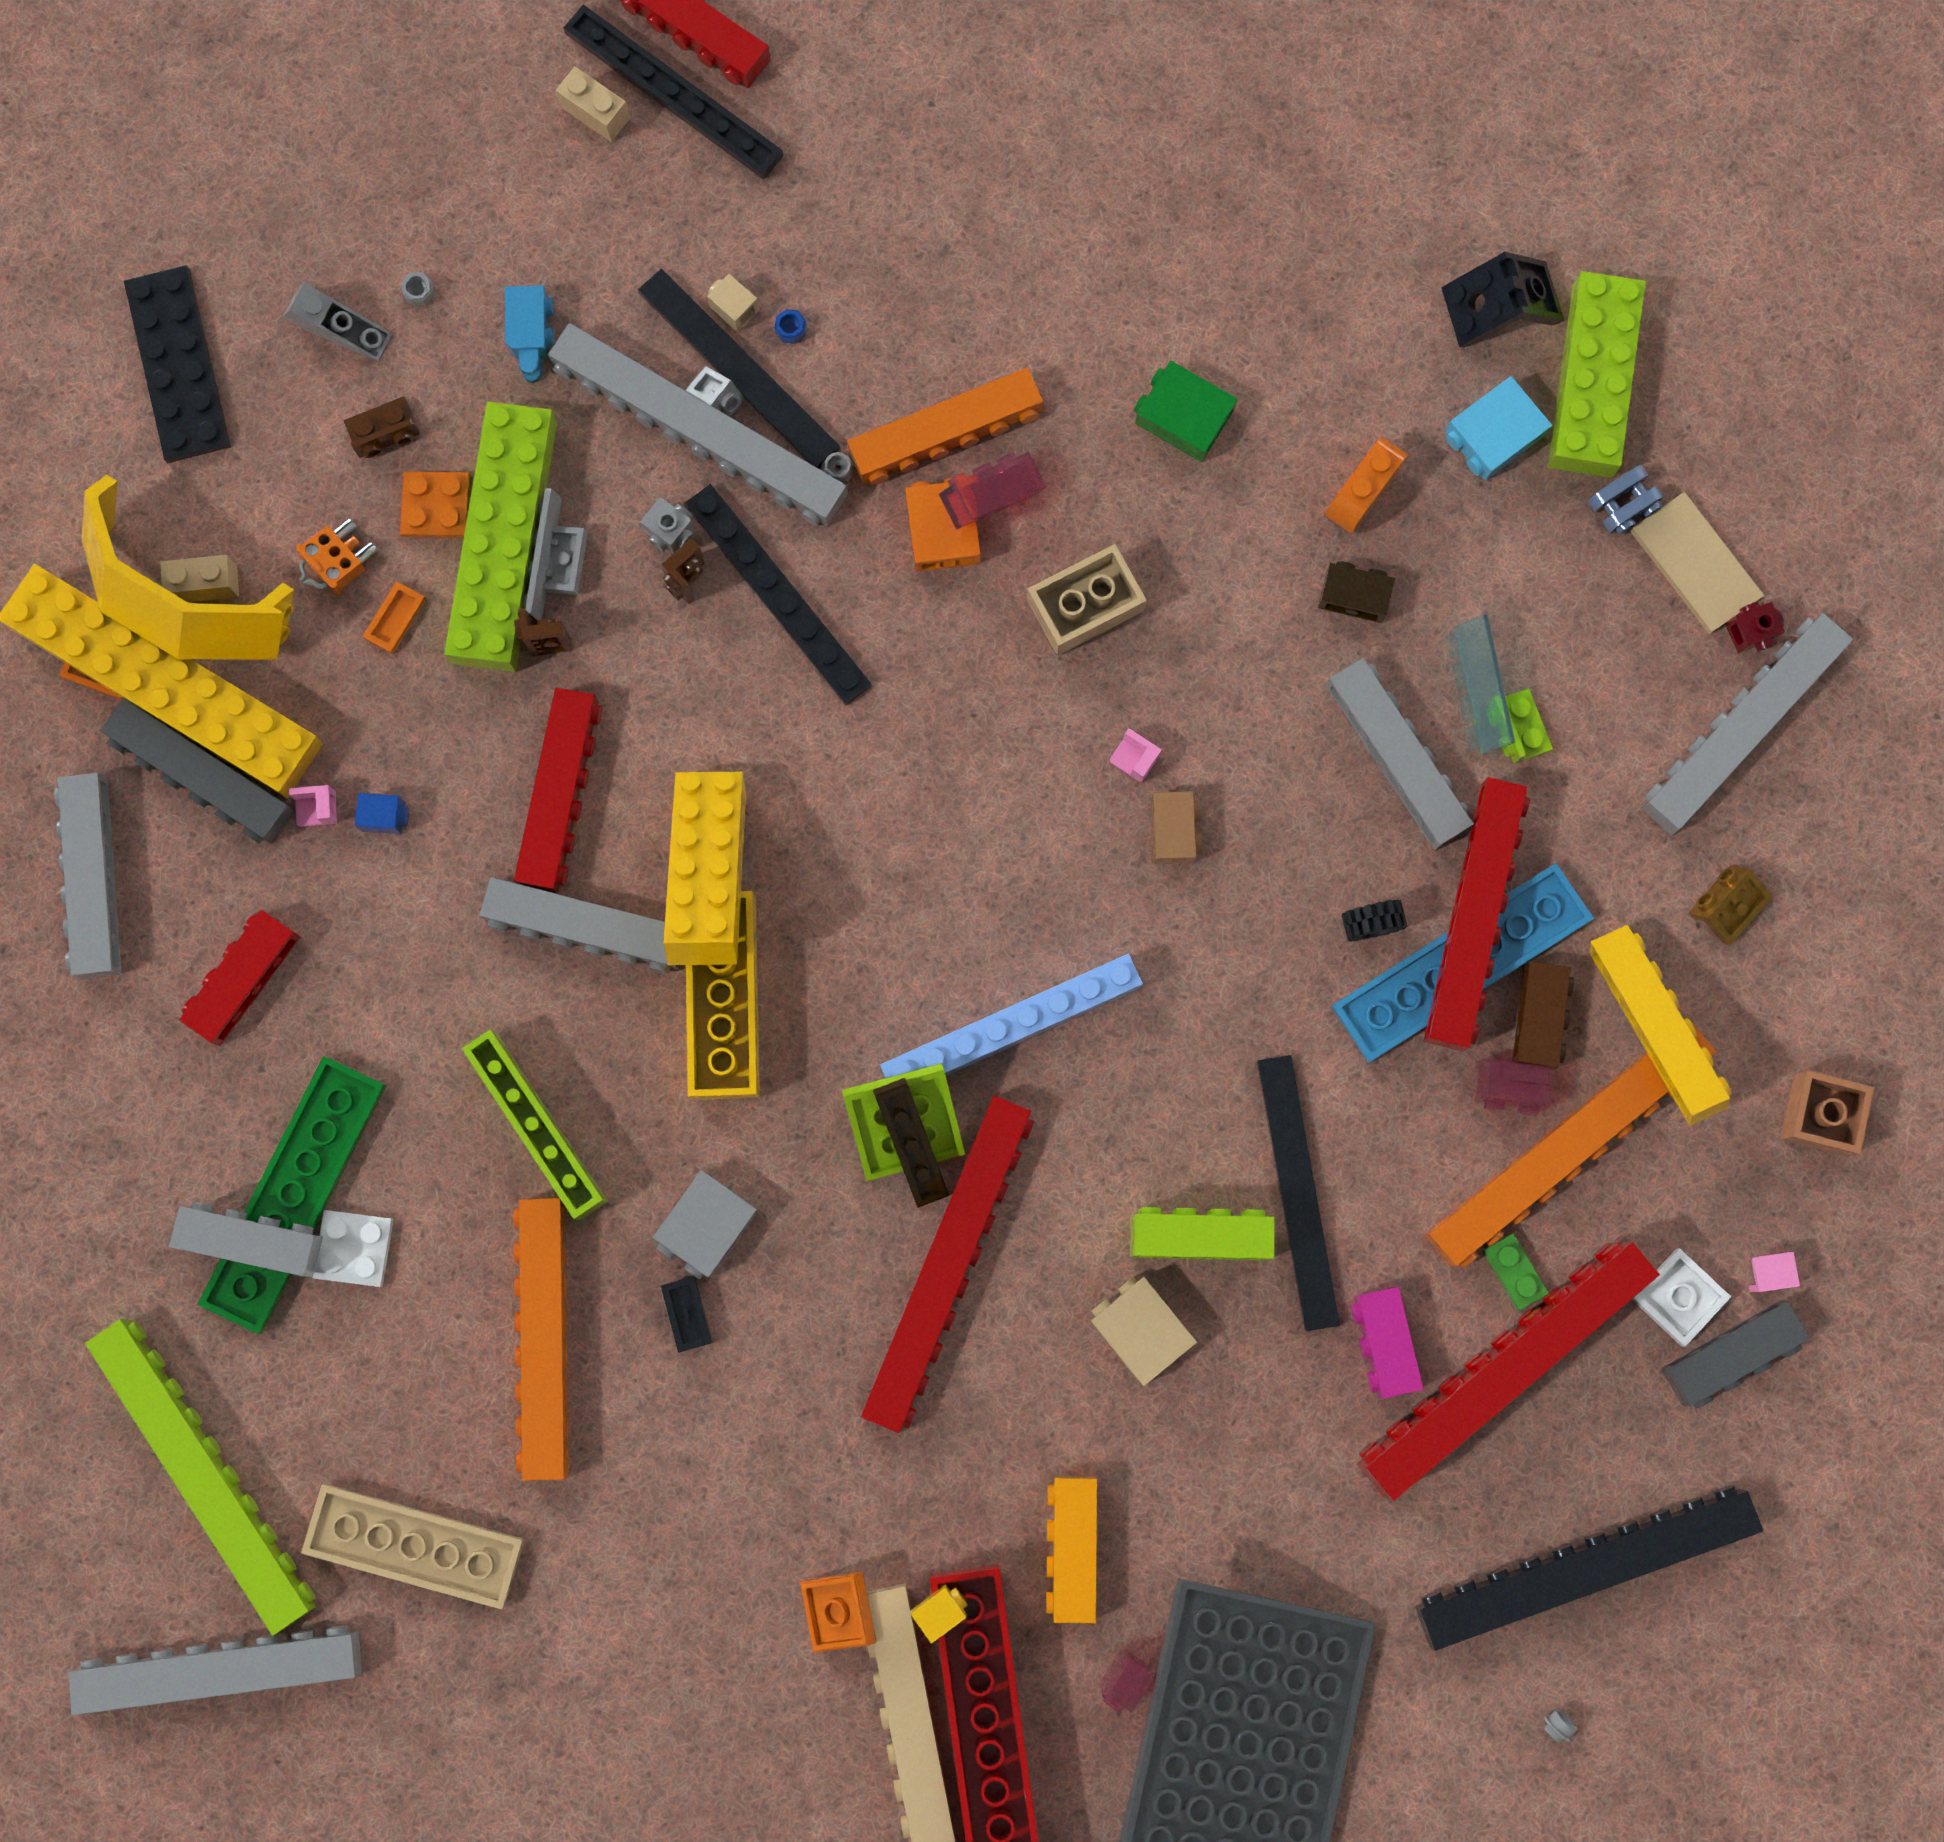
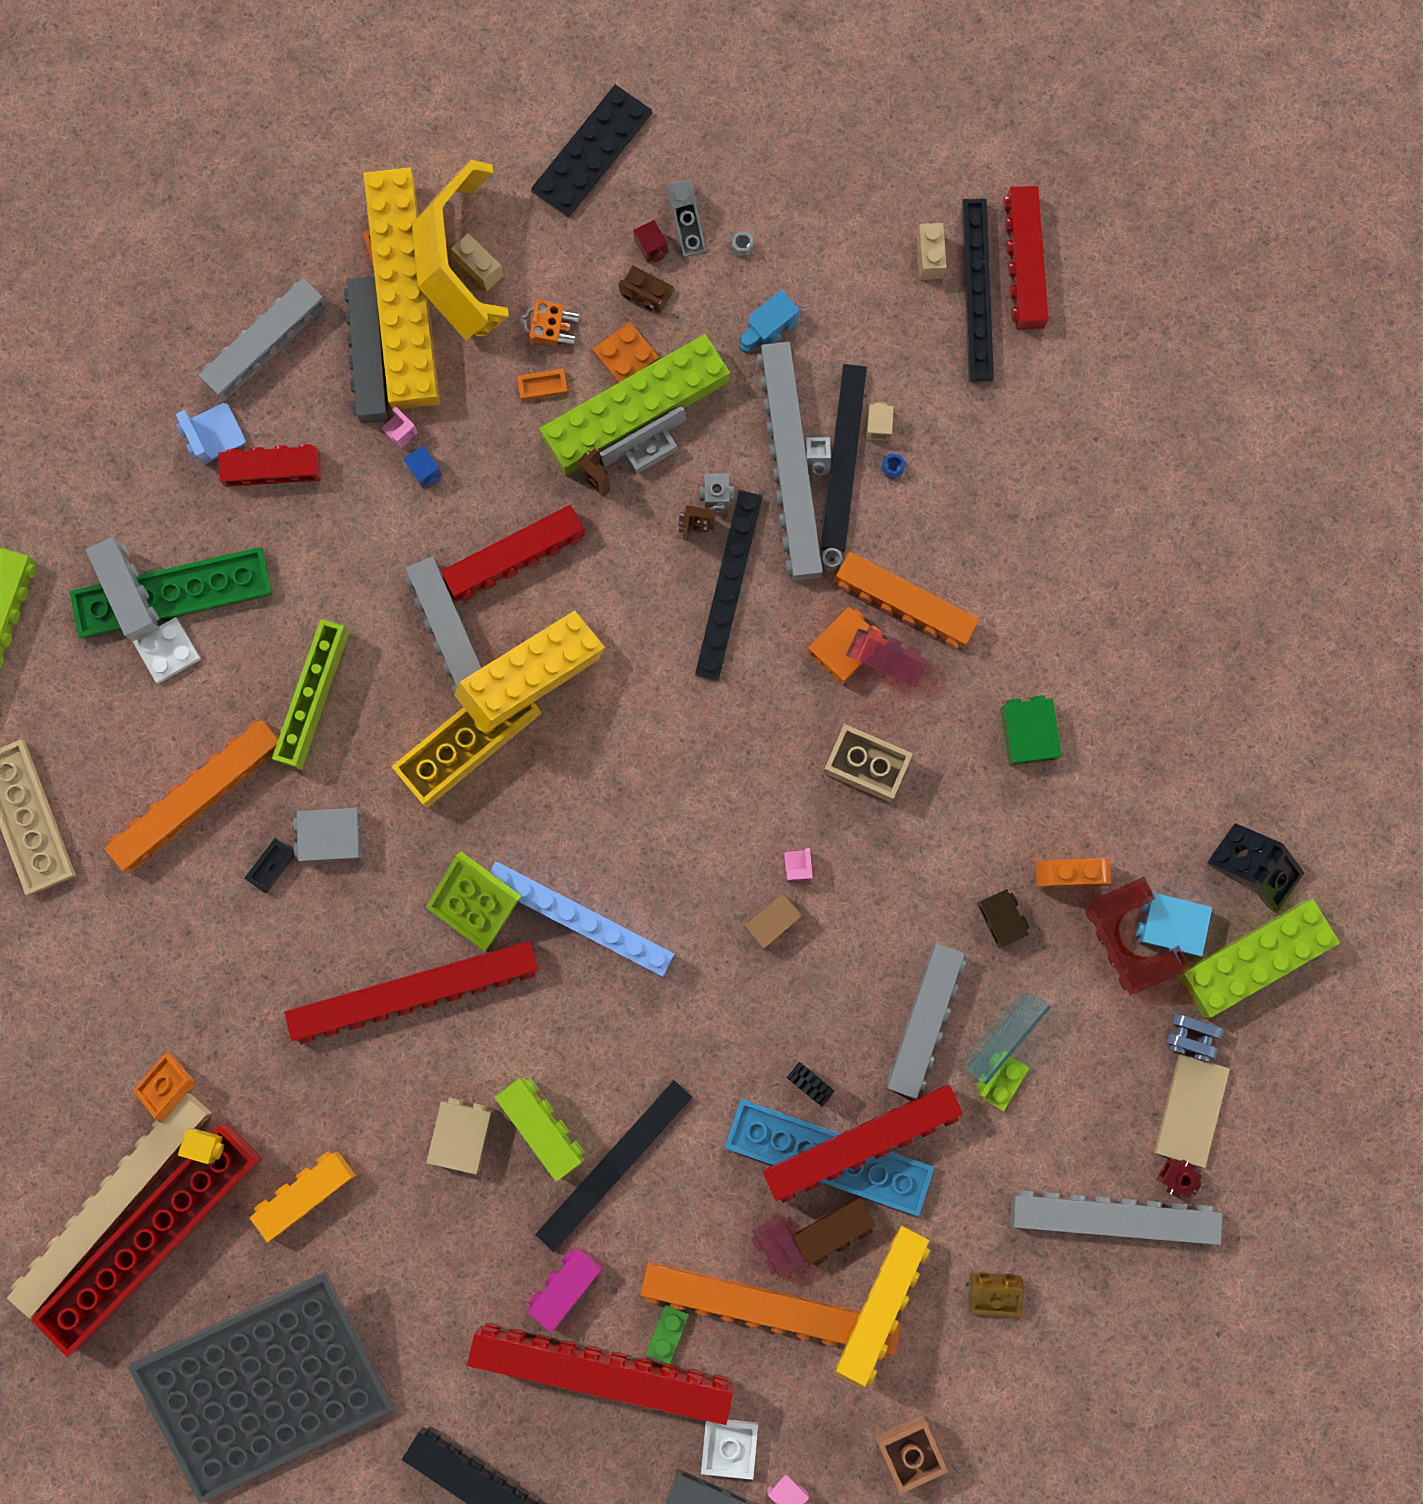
camera: 50 degrees right, 0 degrees up
(147, 1012) = (211, 432): none -> light blue bracket
(334, 380) = (651, 241): none -> dark red brick
(911, 1142) = (463, 914): dark brown tile -> none
(1125, 1681) = (246, 1286): clear pink brick -> none
(1516, 502) = (1134, 970): none -> clear red arch

